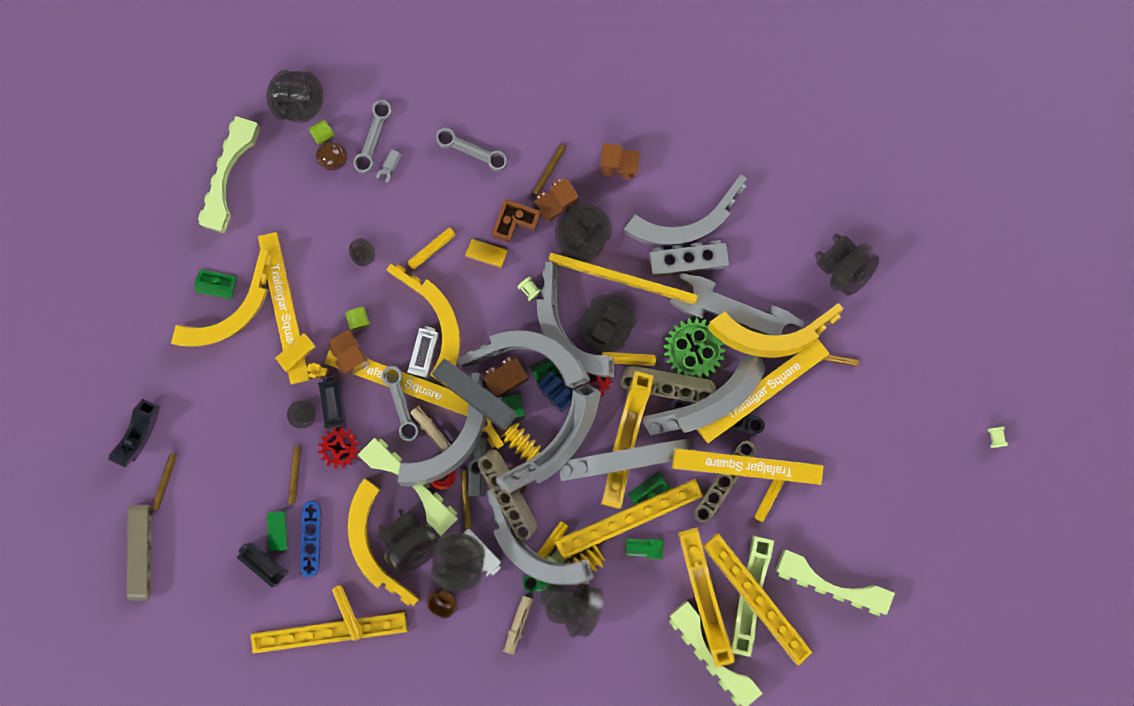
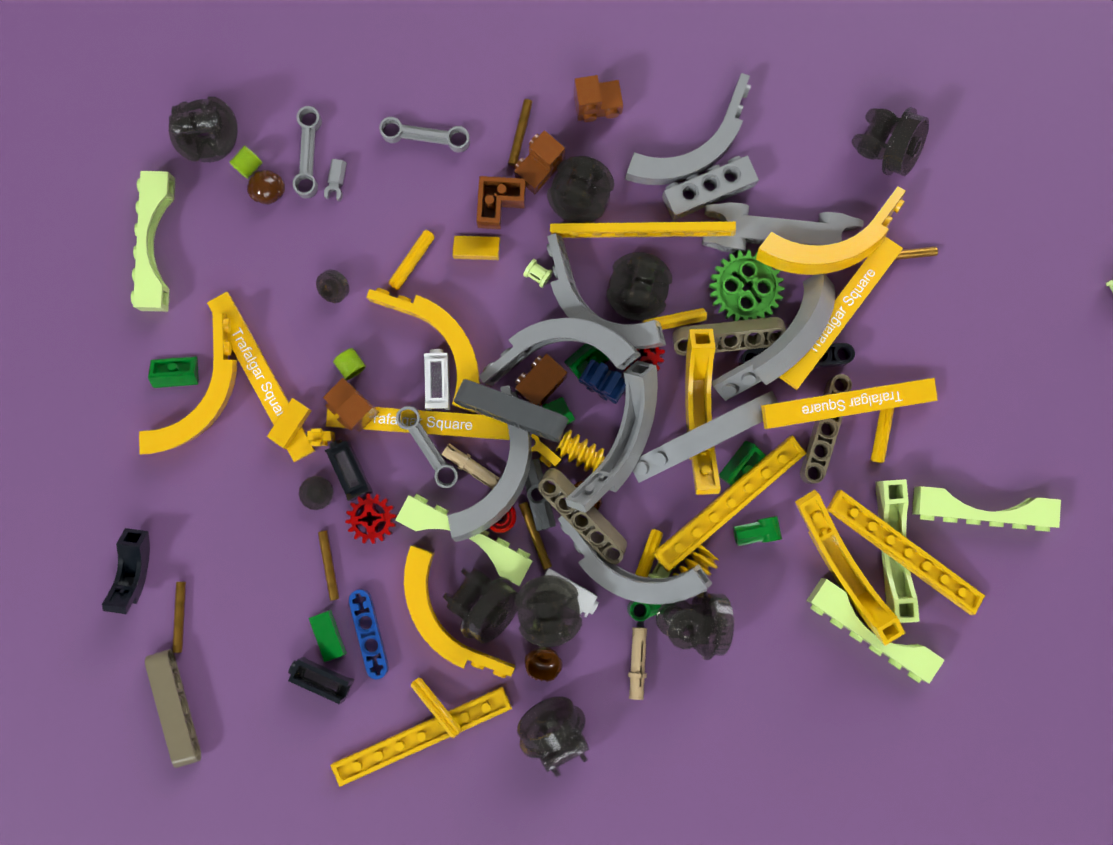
camera: 15 degrees left, 0 degrees up
(434, 660) = (553, 733): none -> clear smoke piece

